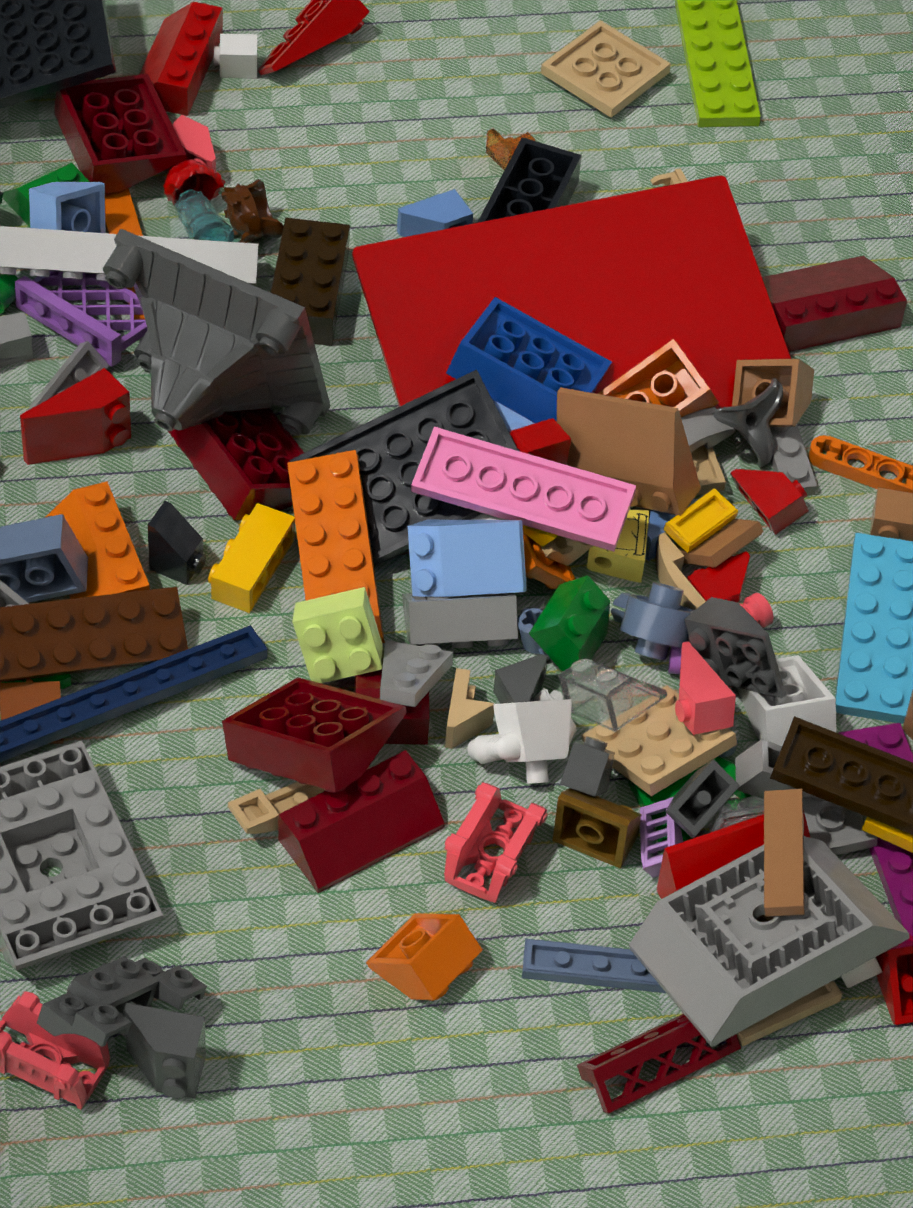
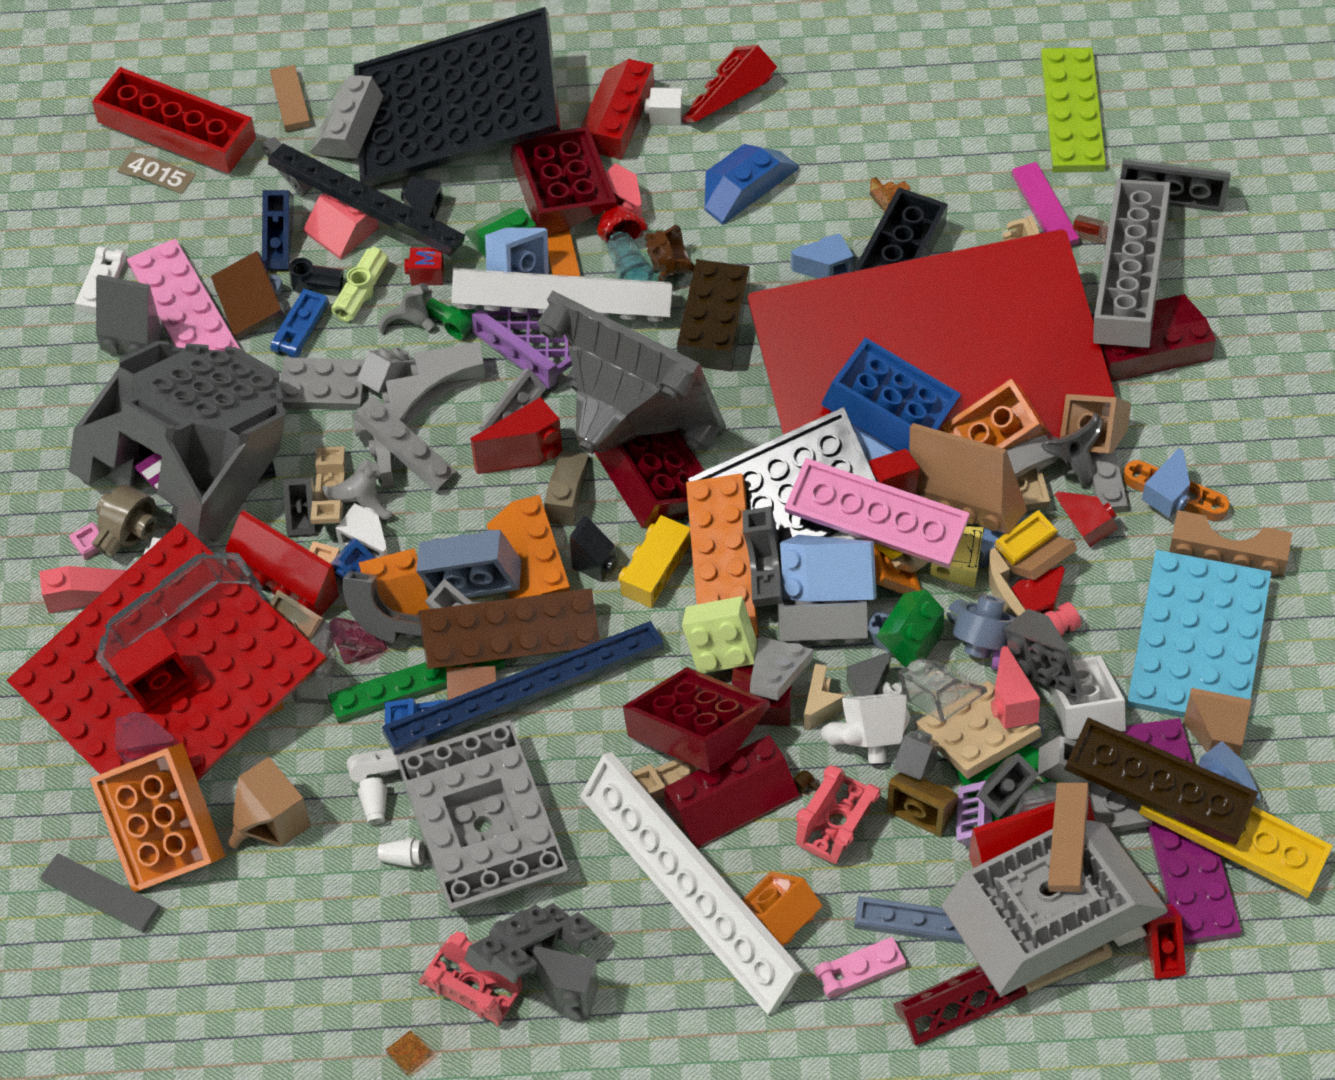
camera: 10 degrees right, 5 degrees up
(138, 477) = (566, 487): none -> dark tan slope
(318, 928) = (691, 883): none -> white plate
(335, 135) = (743, 179): none -> blue wedge
(387, 543) = (764, 556): none -> dark grey arch
(450, 805) = (805, 780): none -> dark brown hand
(533, 1023) = (860, 967): none -> bright pink plate
(605, 68) = (976, 118): tan plate -> none
(685, 149) = (1043, 200): none -> dark pink tile
(745, 181) = (1088, 225): none -> clear red tile
(803, 218) = (1132, 263): none -> light grey brick
(841, 136) = (1189, 184): none -> dark grey slope
(865, 461) = (1169, 486): none -> medium blue slope

